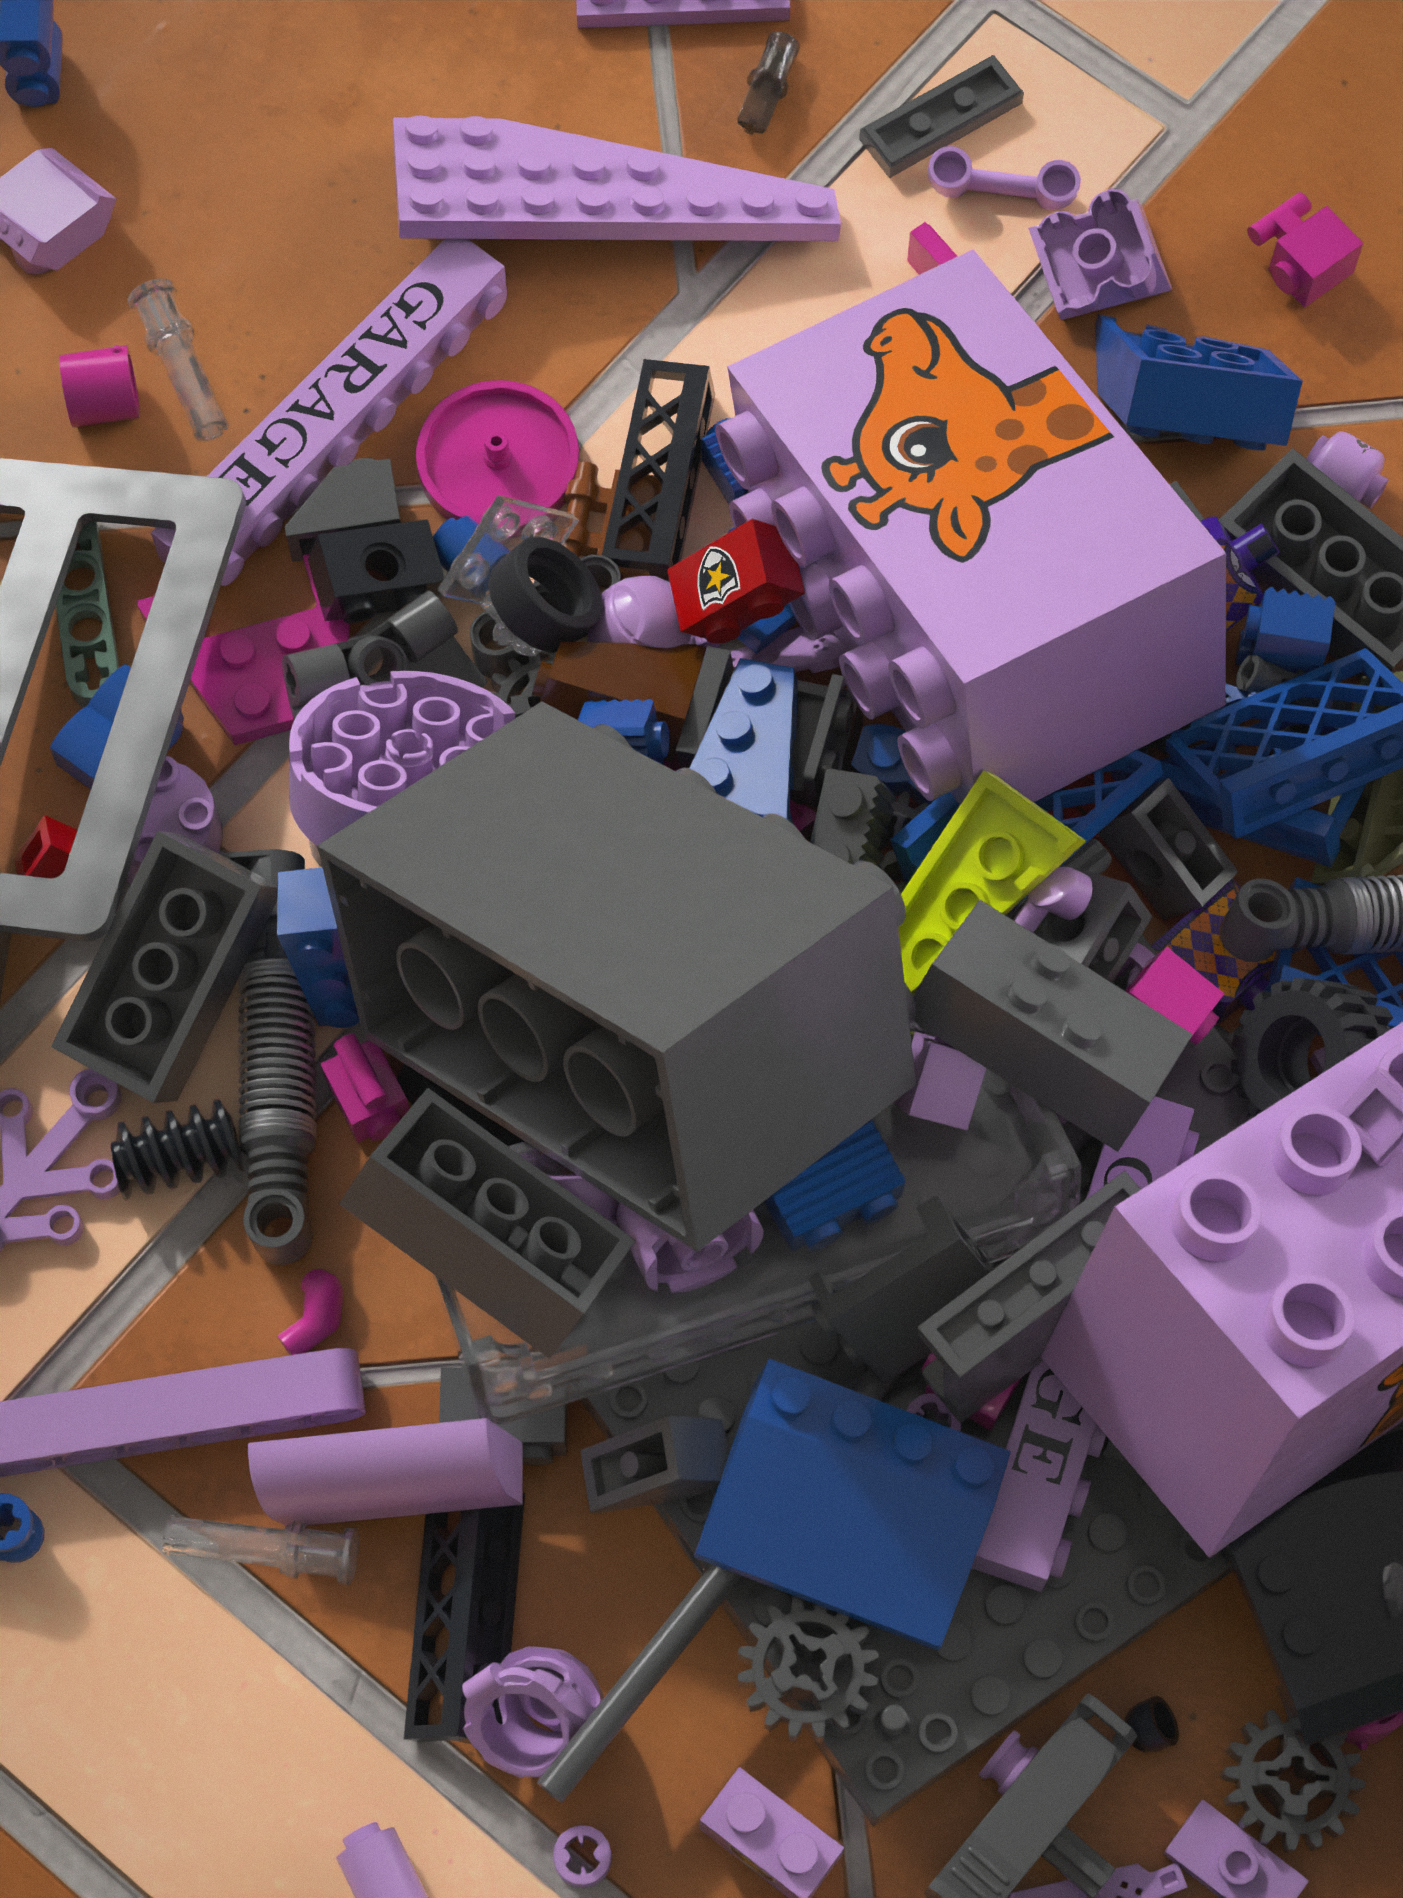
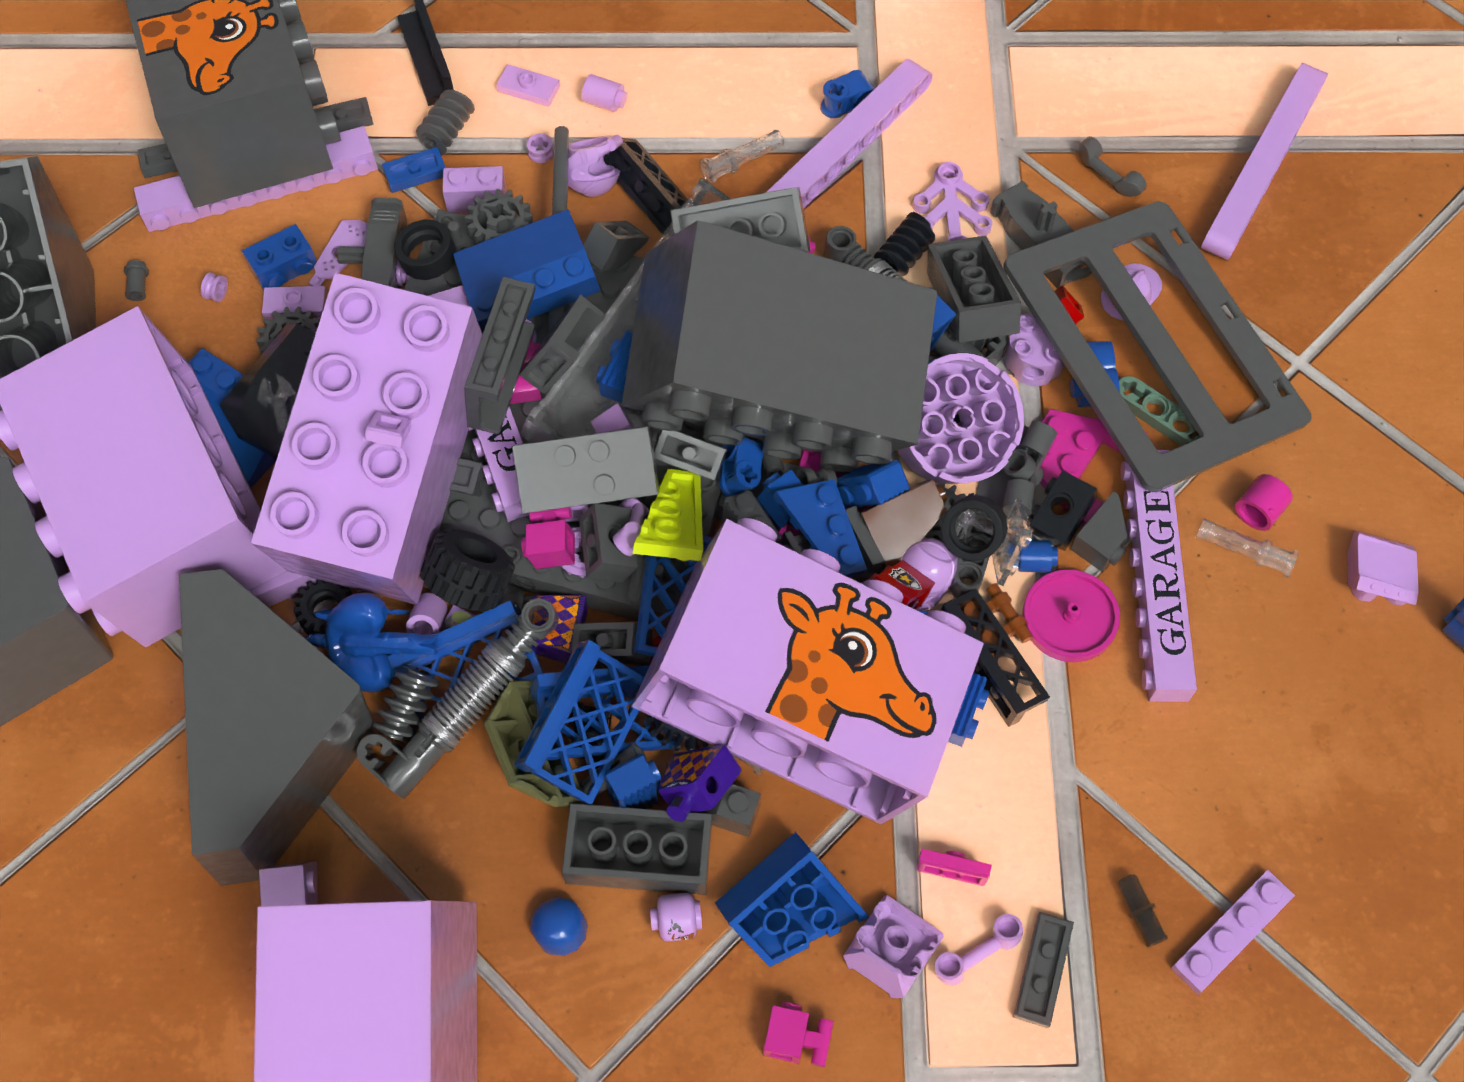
camera: 140 degrees right, 5 degrees down
(387, 1472) = (735, 180): lavender brick -> none
(545, 183) = (1183, 757): lavender wing -> none
(1021, 1694) = (417, 233): none -> black tyre

